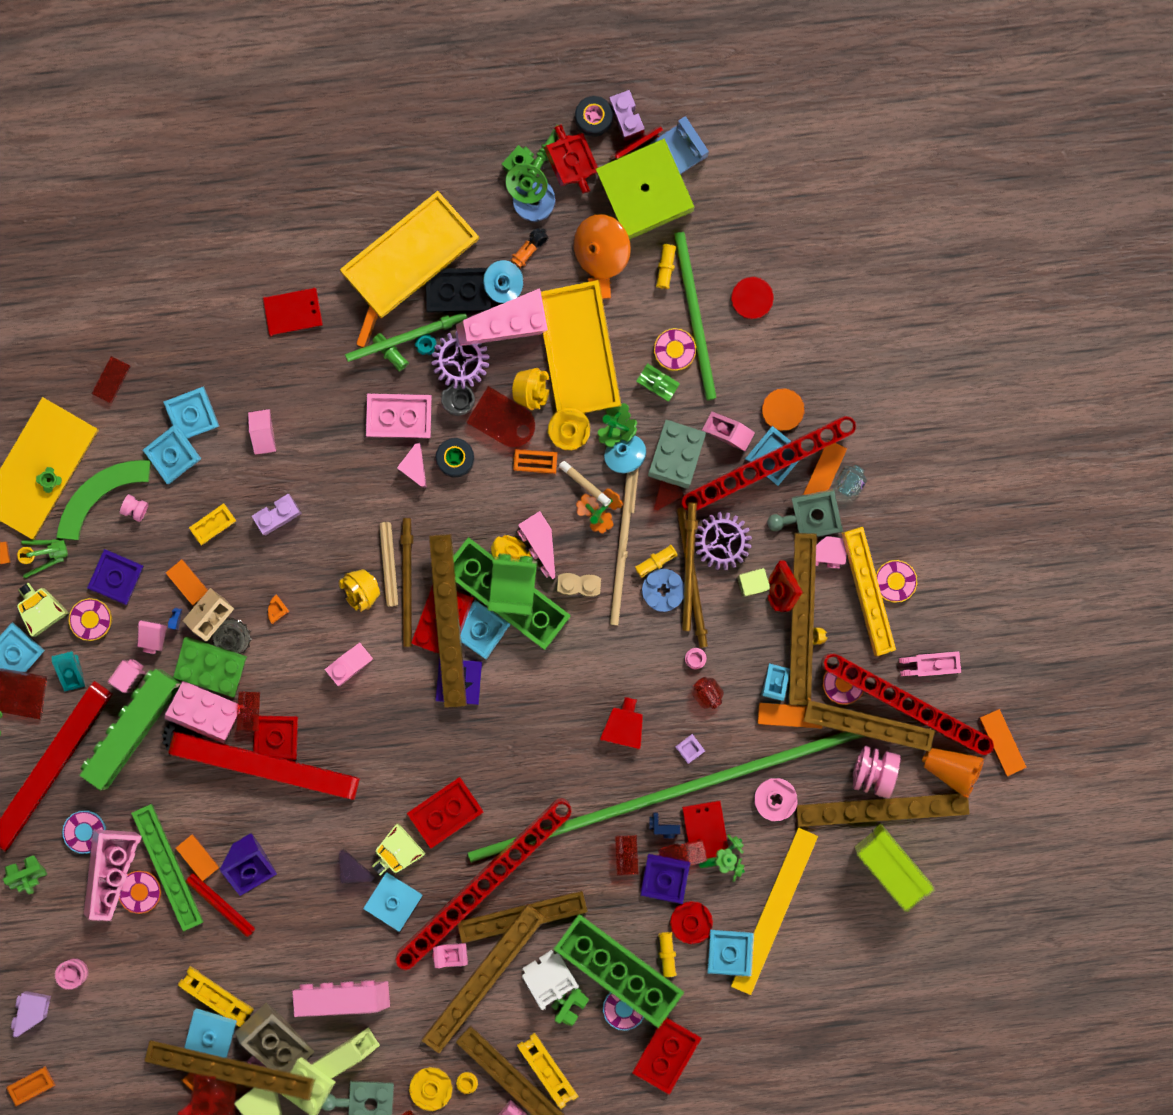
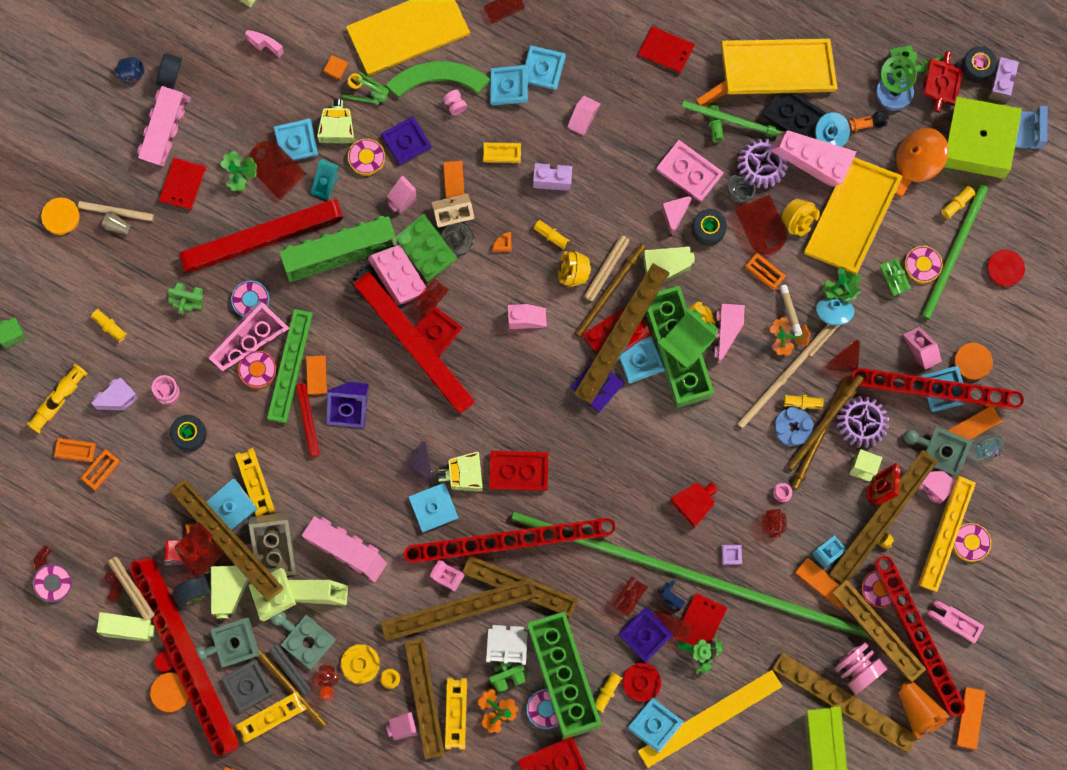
camera: 35 degrees right, 10 degrees down
(42, 479) = (410, 36): bright green plate -> none
(68, 1068) = (106, 474): none -> orange tile
(114, 996) = (188, 426): none -> black wheel
(127, 675) = (364, 209): bright pink brick -> none
(174, 622) = (424, 199): blue tile -> none
(314, 569) = (551, 234): none -> yellow axle
(420, 344) = (744, 132): teal plate -> none
(441, 518) = (674, 260): none -> yellowish green slope
(569, 428) = (806, 264): yellow tile -> none
(585, 585) = (739, 381): tan brick -> none
(589, 1041) = (505, 711): none -> orange plant
(653, 133) = (1002, 101): red container -> none
(677, 454) = (873, 336): sand green plate -> none
(778, 811) = (765, 647): bright pink plate -> none

